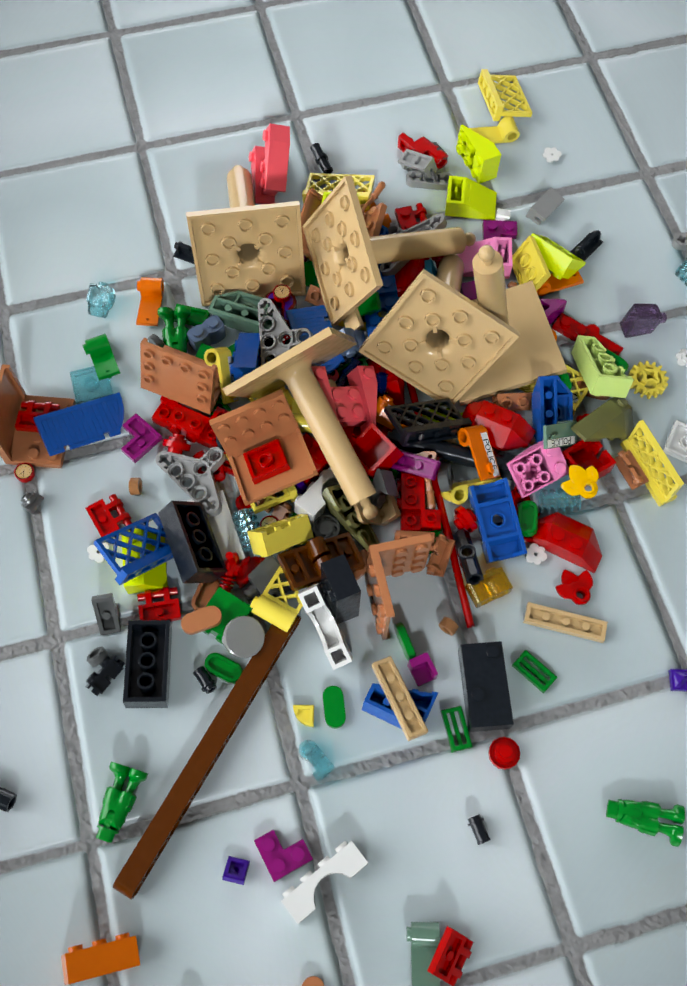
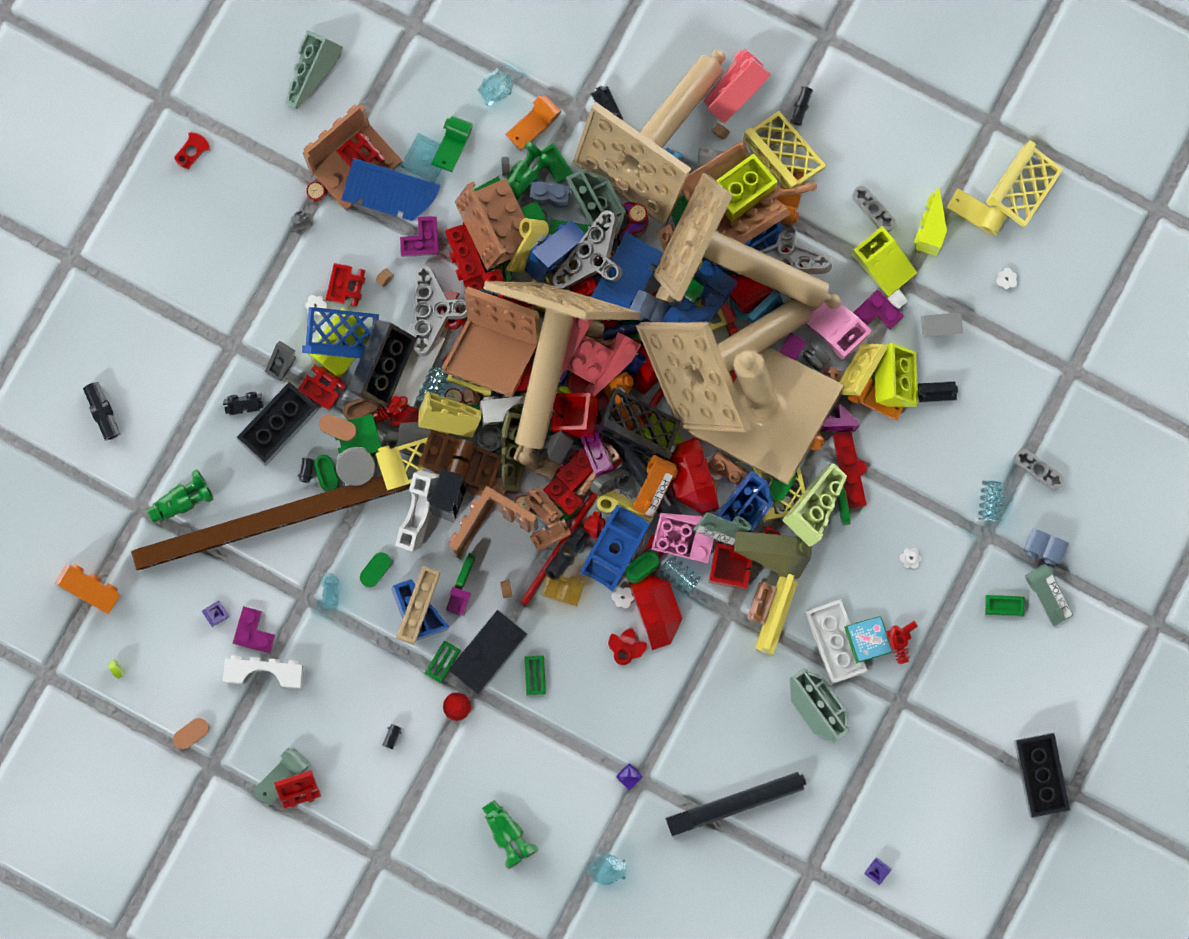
camera: 45 degrees right, 15 degrees up
(97, 656) = (248, 386): dark grey tile -> none
(176, 444) = (442, 271): red plate -> none
(266, 461) = (488, 350): red tile -> none
(305, 714) = (351, 556): light yellow tile -> none
(407, 217) = (814, 231): red plate -> none
(418, 161) = (873, 186): light grey hinge -> none
(425, 147) = (898, 177): red plate -> none
(565, 622) = (590, 663): tan plate -> none
(579, 479) = (705, 575): yellow plate -> none
(642, 320) = (899, 493): clear purple torso -> none
(648, 379) = (864, 547): light yellow gear -> none

